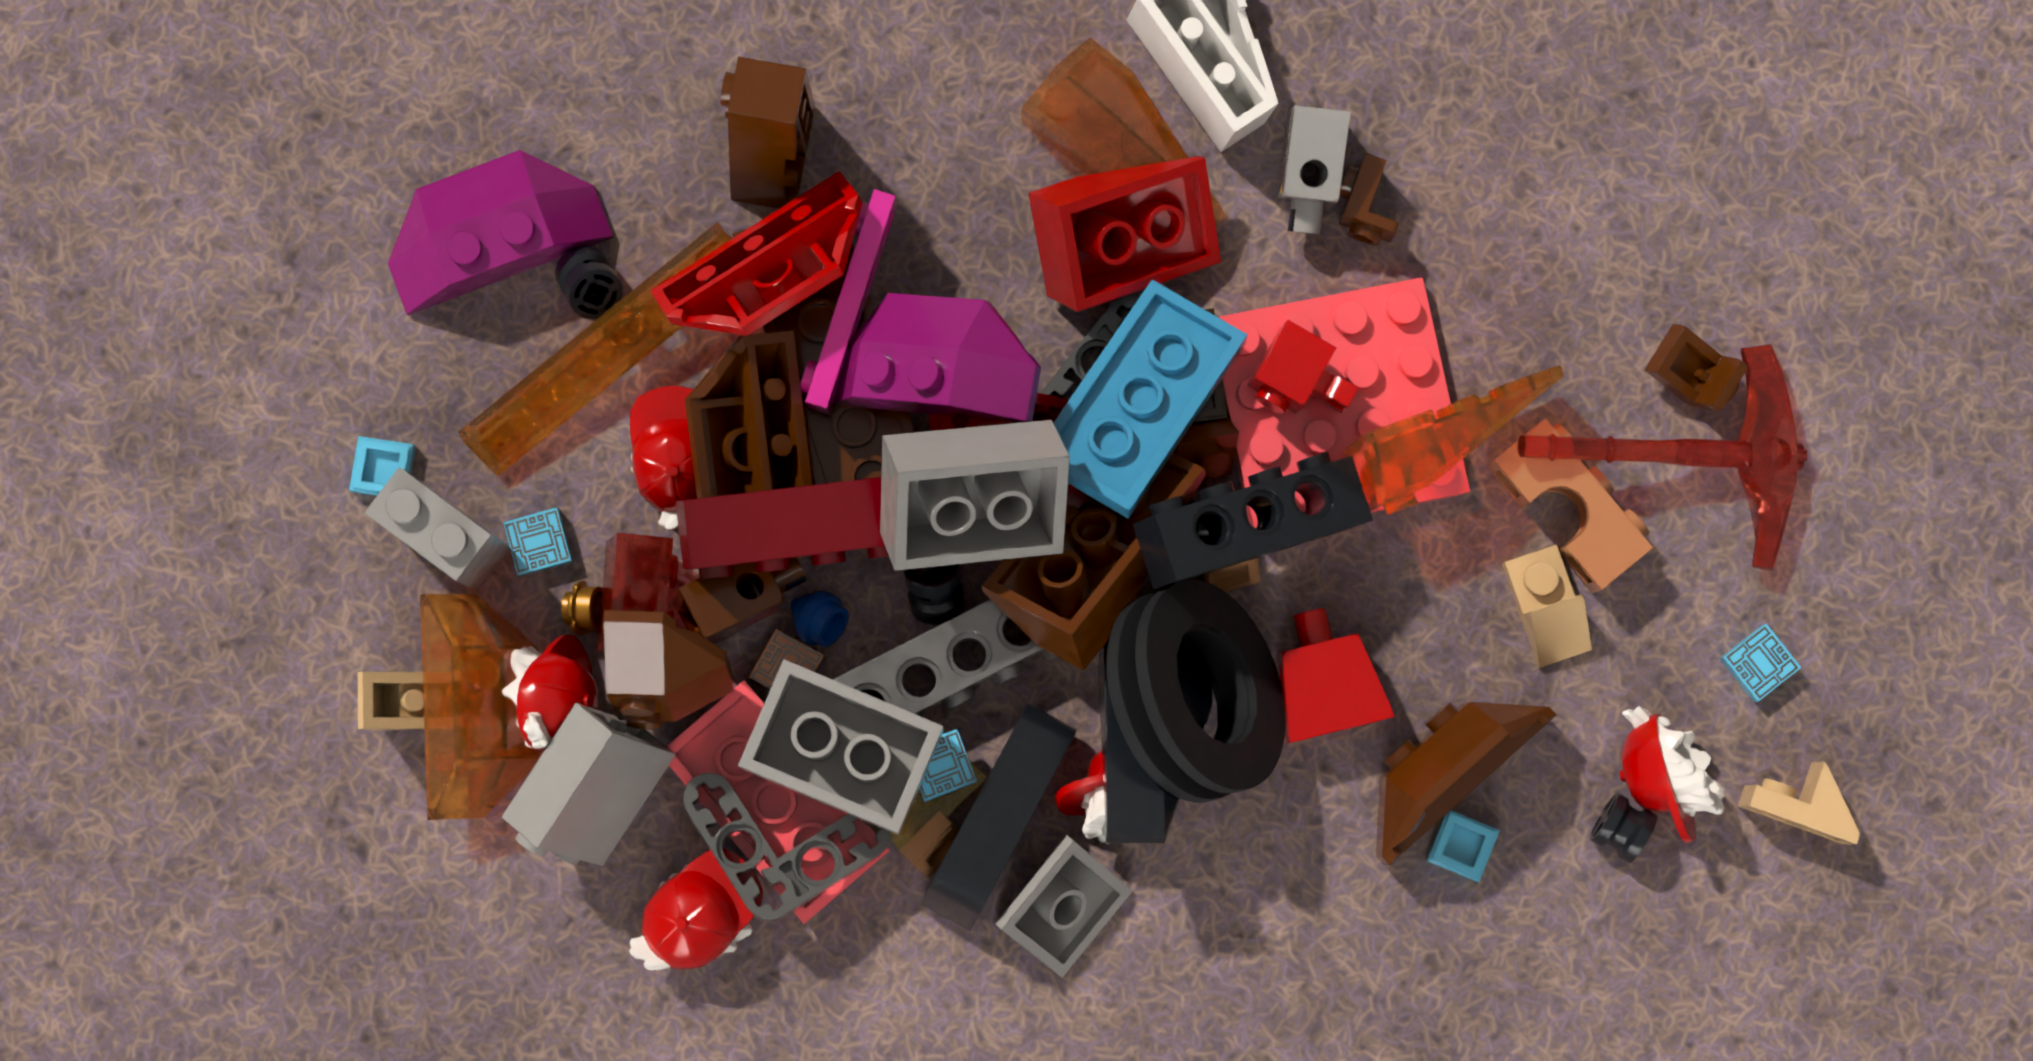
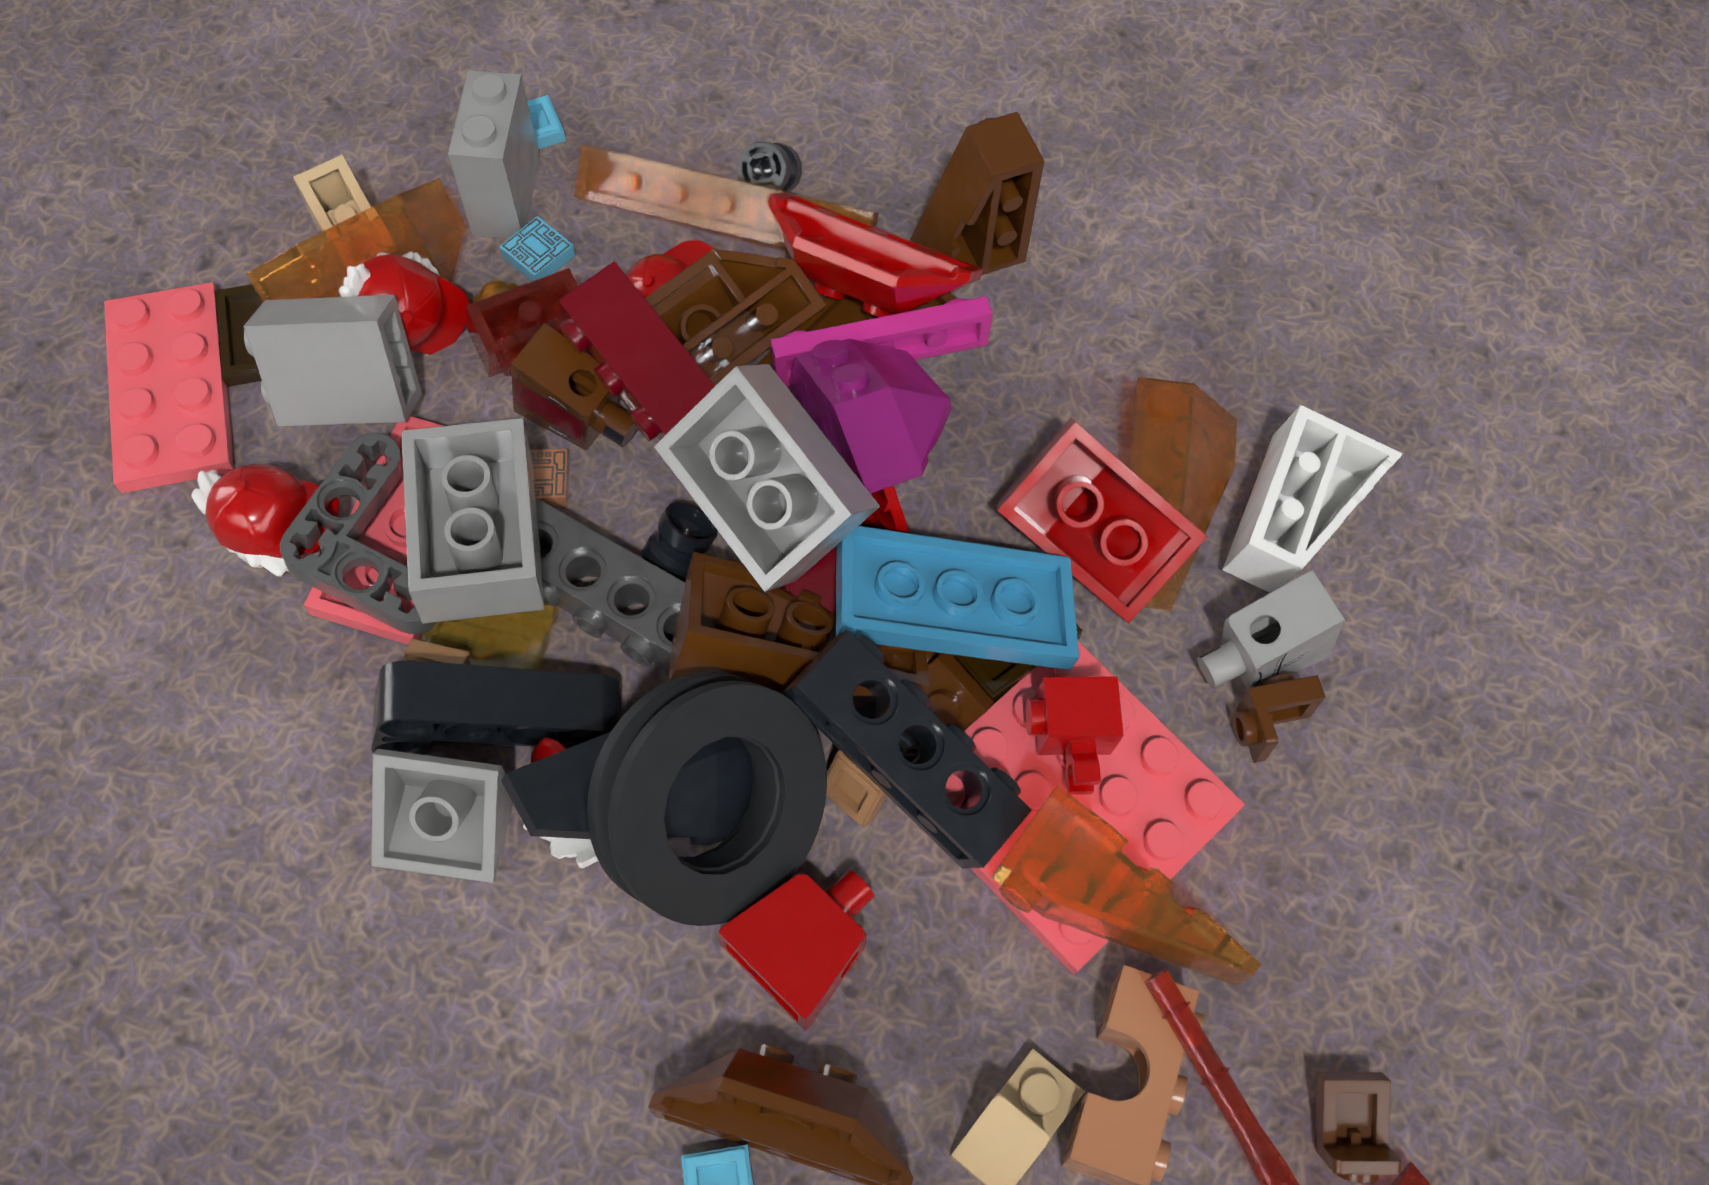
camera: 60 degrees right, 20 degrees down
(473, 851) = (234, 309): none -> dark brown tile
(489, 942) = (166, 388): none -> coral plate
(491, 227) = (771, 98): magenta wedge -> none
(660, 669) = (452, 325): reddish brown wedge -> none
(819, 618) = (595, 477): blue plate -> none
(948, 768) = (514, 637): medium azure tile -> none

